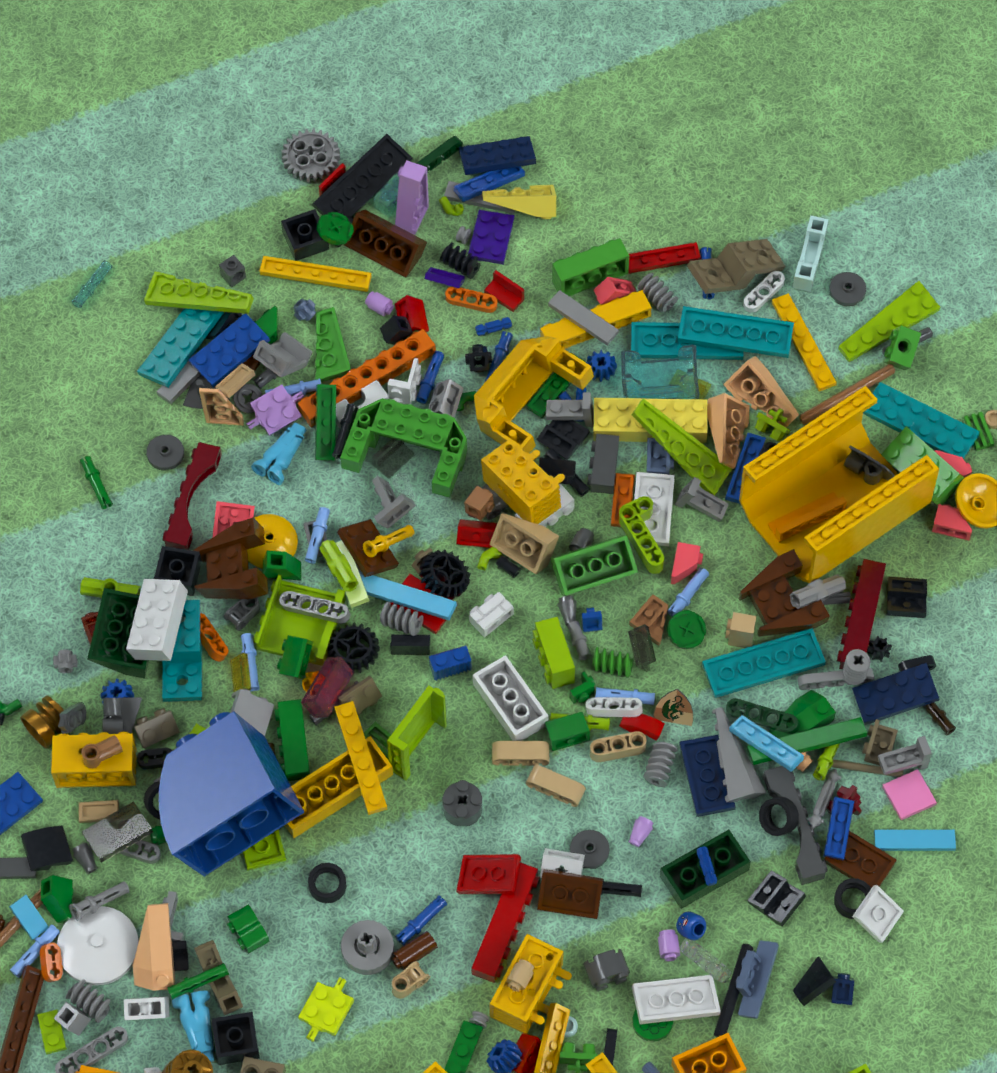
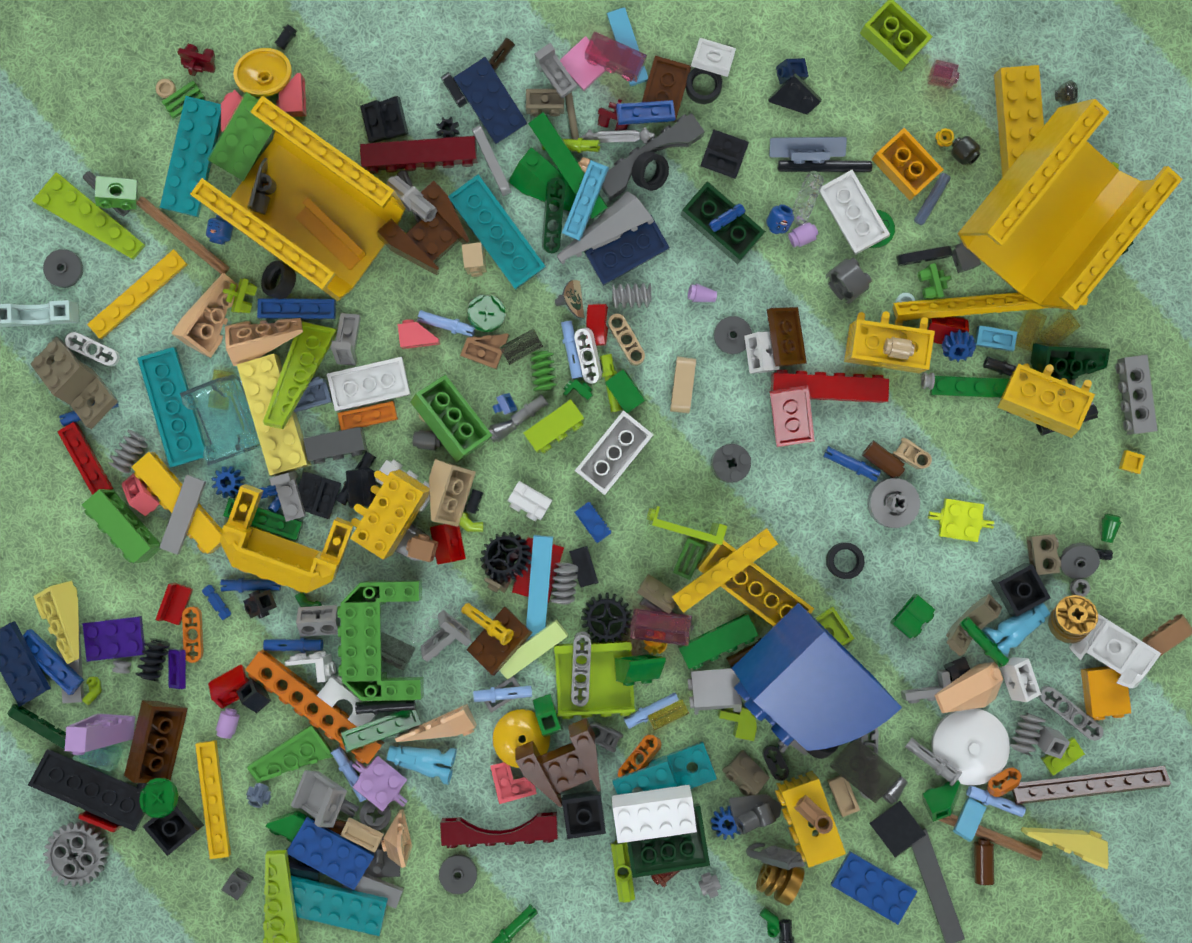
camera: 110 degrees left, 25 degrees up
(306, 479) = (447, 725): none -> light nougat wedge
(338, 565) = (531, 661): lime piece -> none
(520, 752) = (661, 427): tan beam -> none
(621, 889) = (763, 298): black pin -> none
(636, 522) = (405, 378): lime beam -> none
(735, 332) = (150, 360): teal plate -> none
(856, 667) = (483, 136): light grey piece -> none
(904, 818) = (615, 57): none -> clear pink brick

